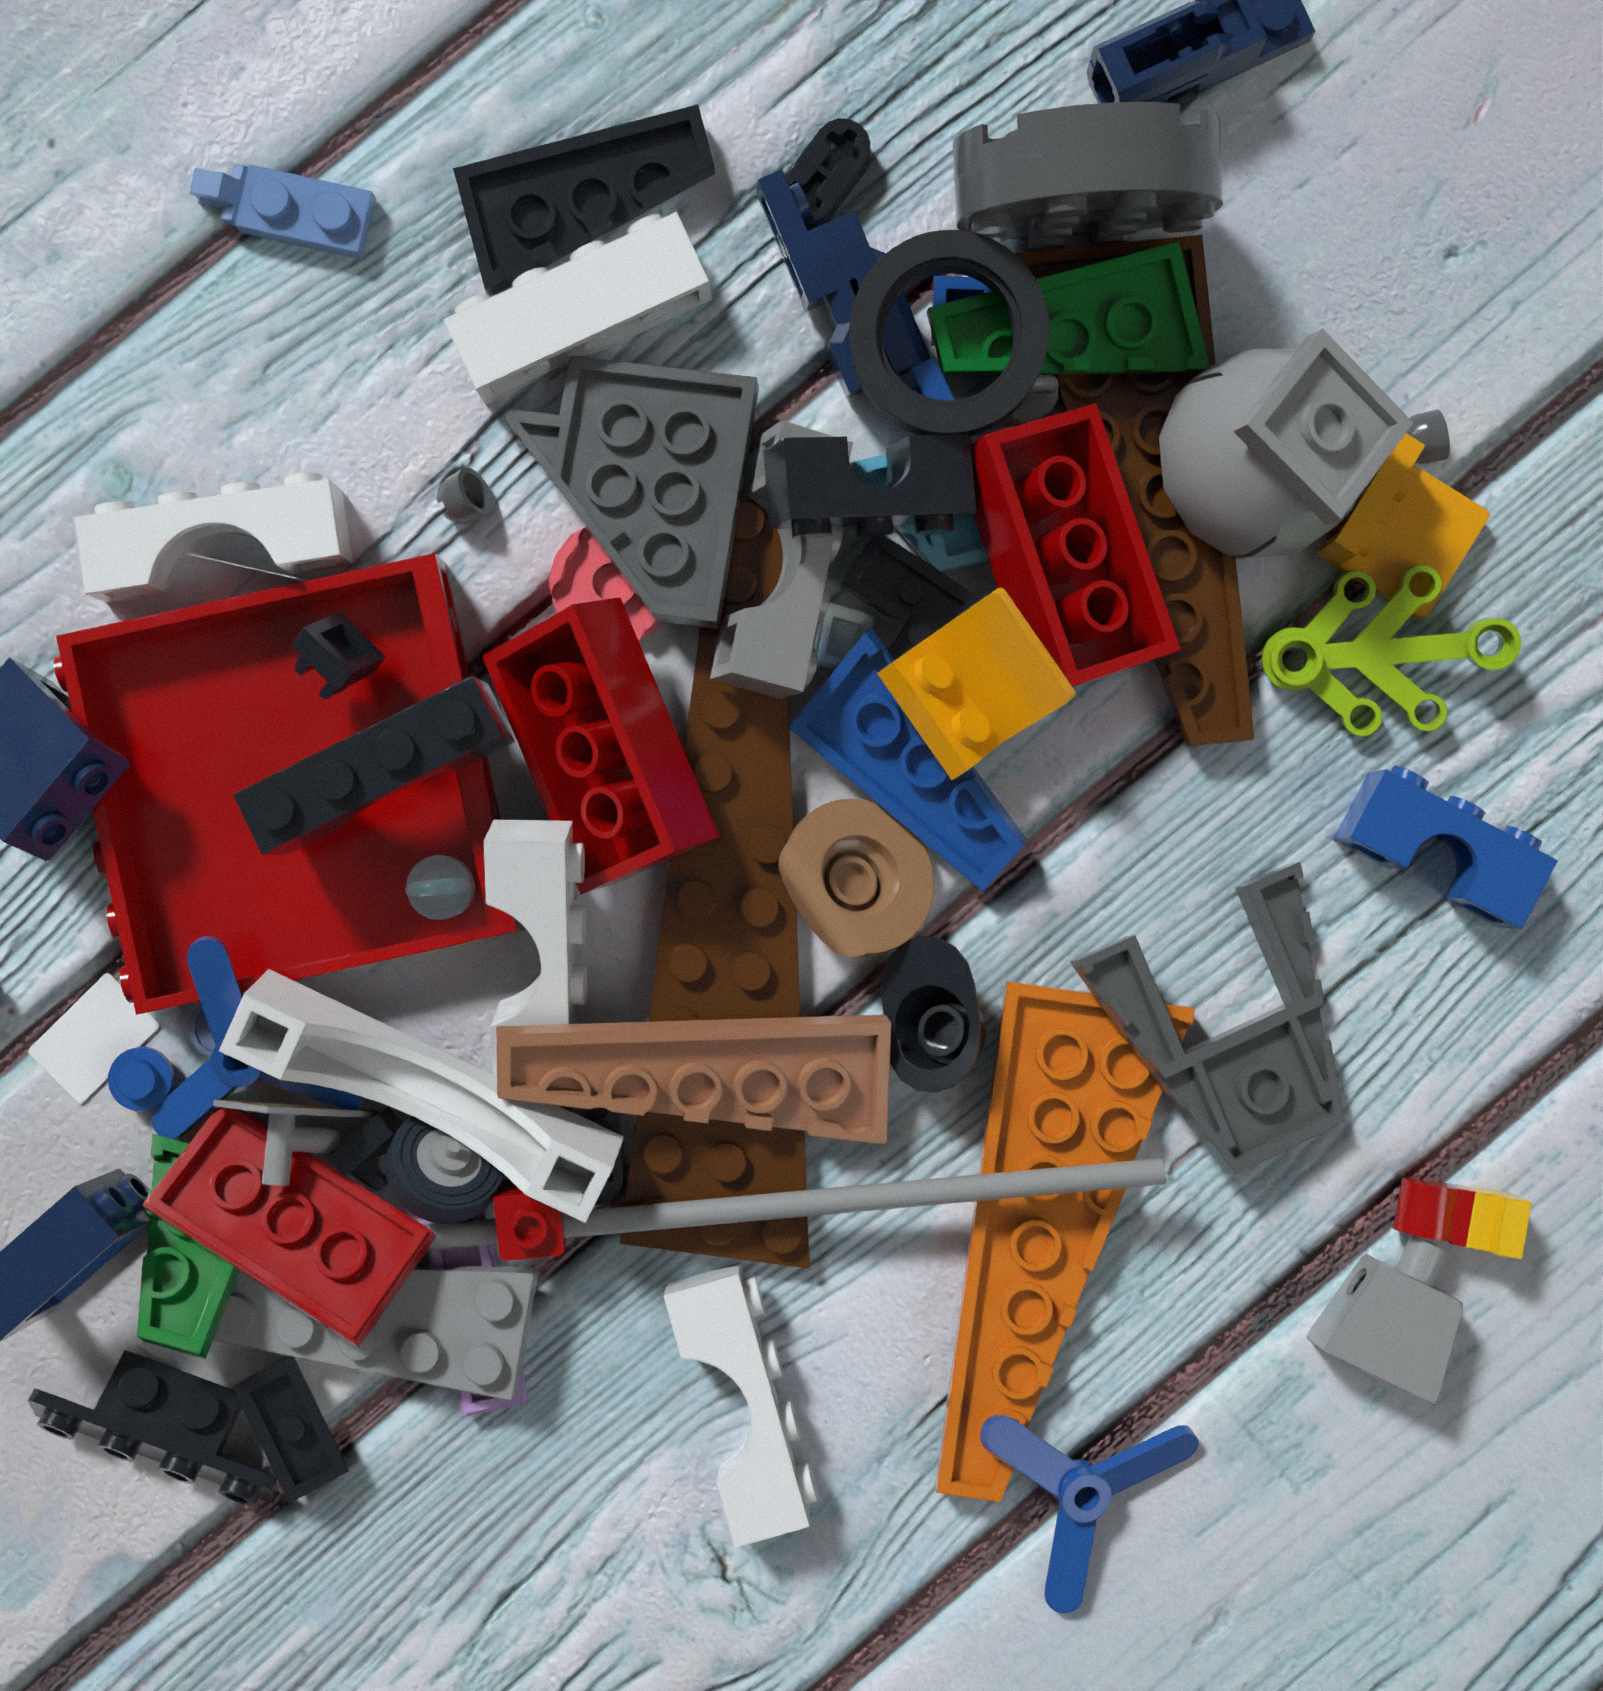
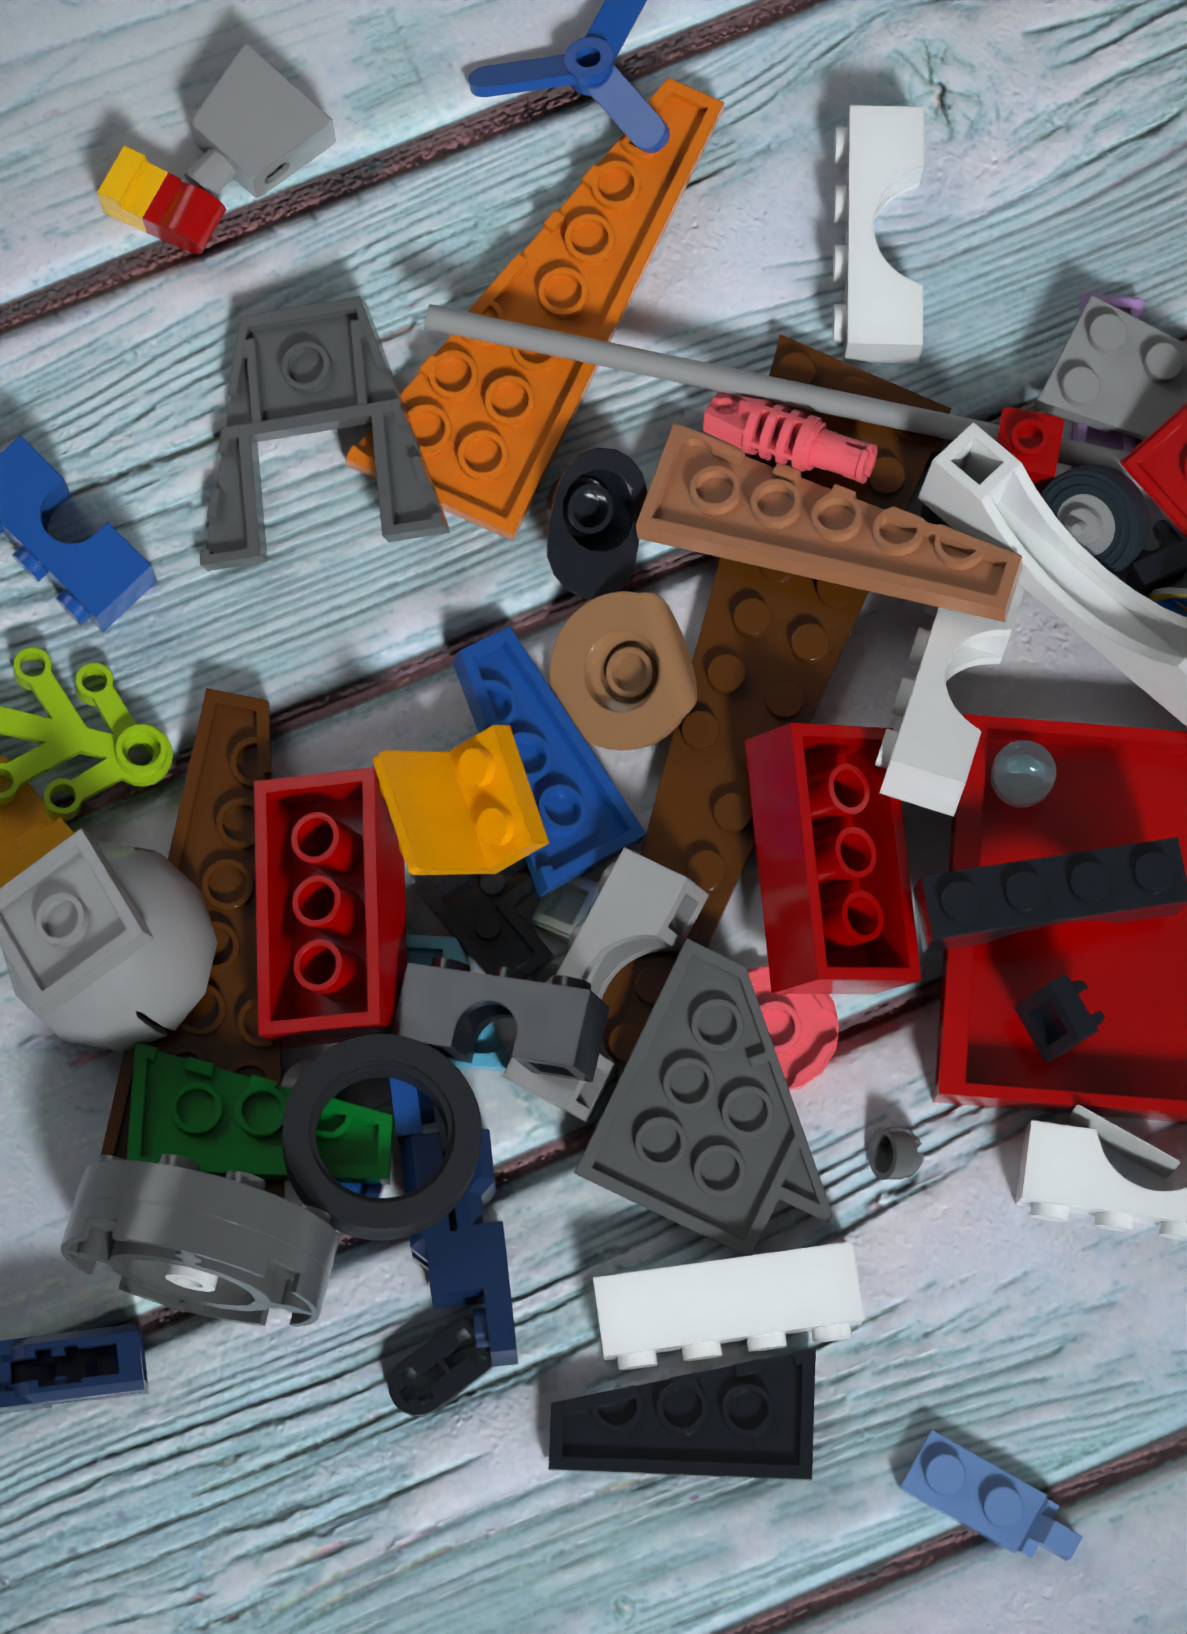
camera: 165 degrees left, 10 degrees down
(770, 1159) = (787, 436): none -> coral hinge

